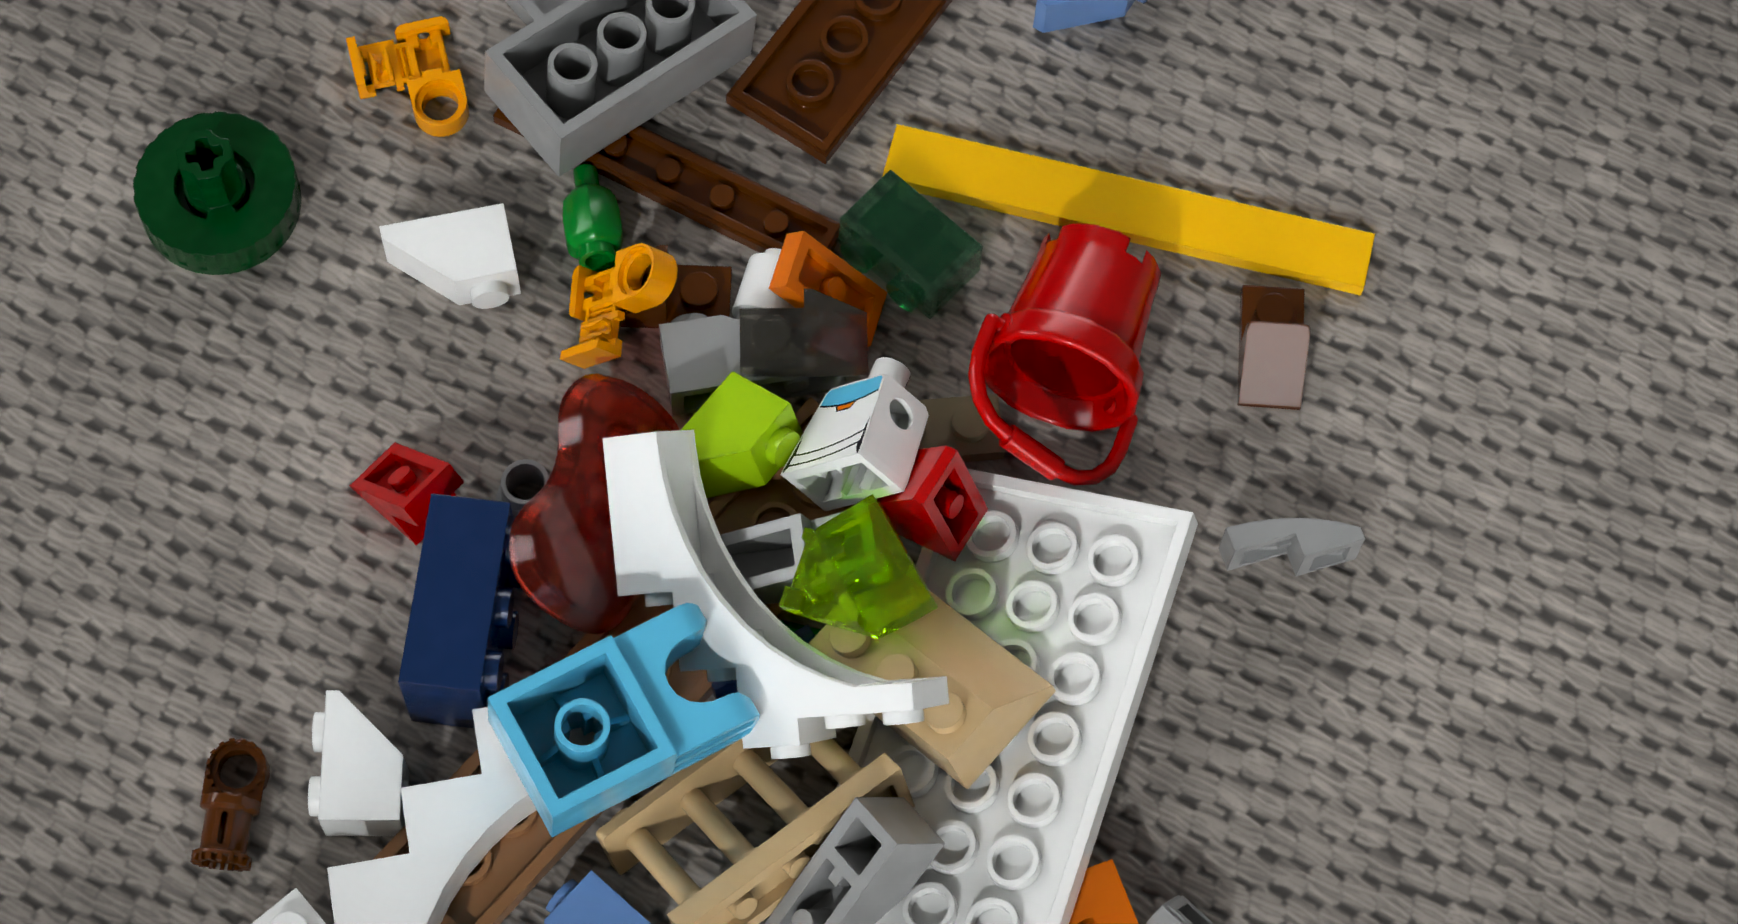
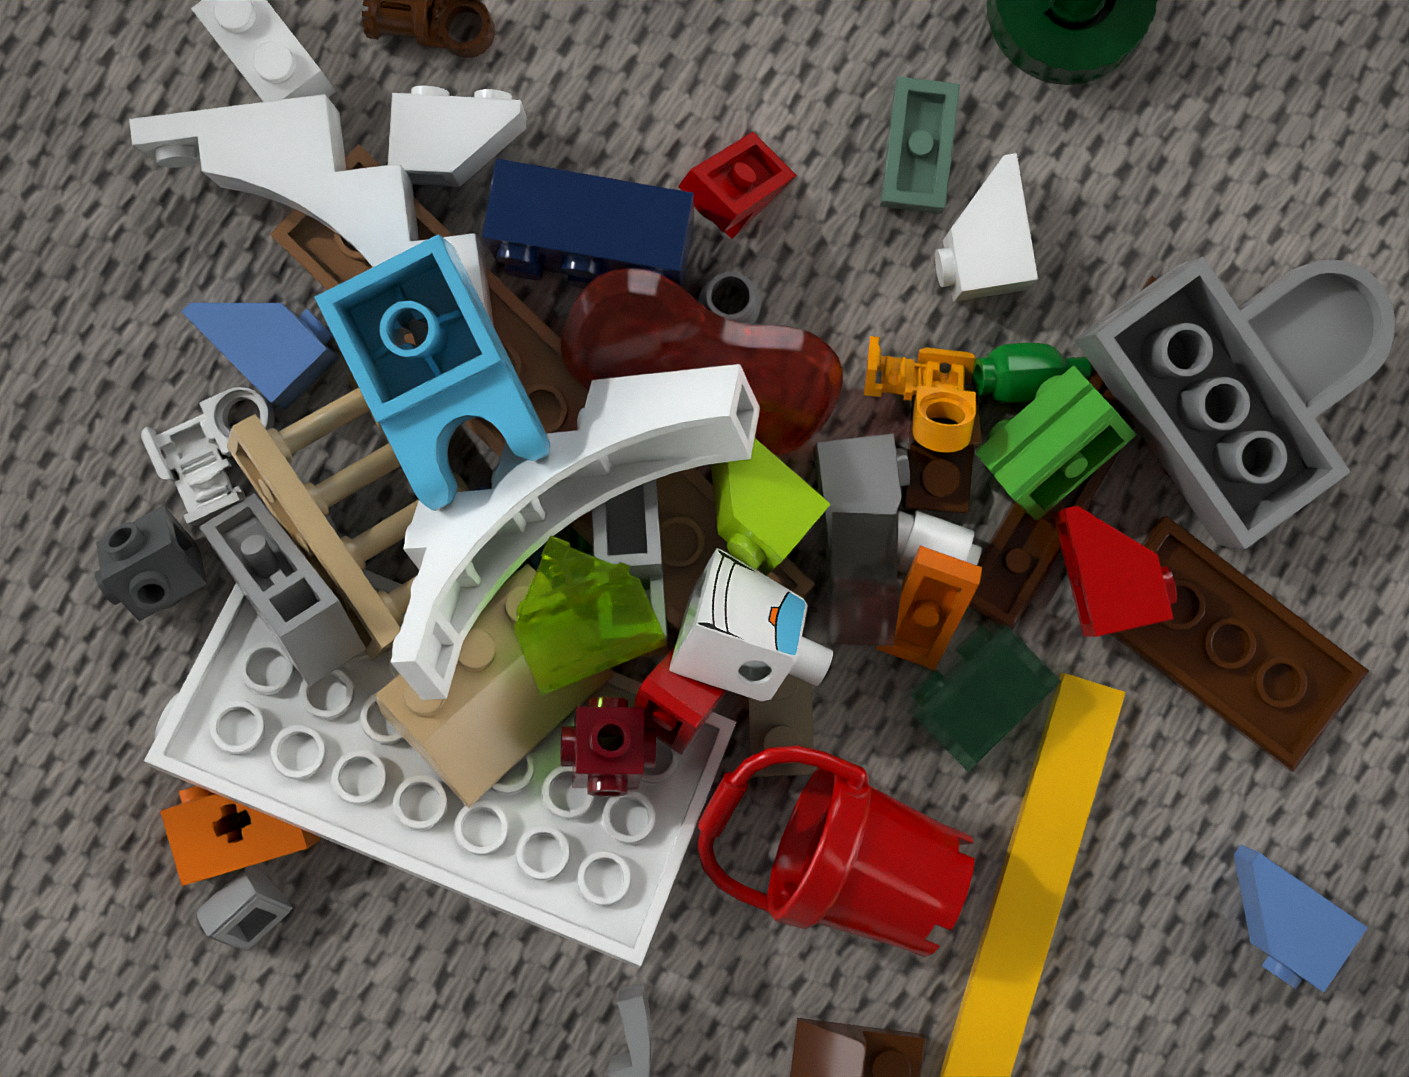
camera: 95 degrees right, 20 degrees up
(365, 324) = (919, 145): none -> sand green plate
(418, 64) = (1218, 198): light orange piece -> none
(660, 183) = (1054, 442): none -> bright green brick
(787, 133) = (1112, 576): none -> red slope
(984, 558) = (601, 770): none -> dark red brick

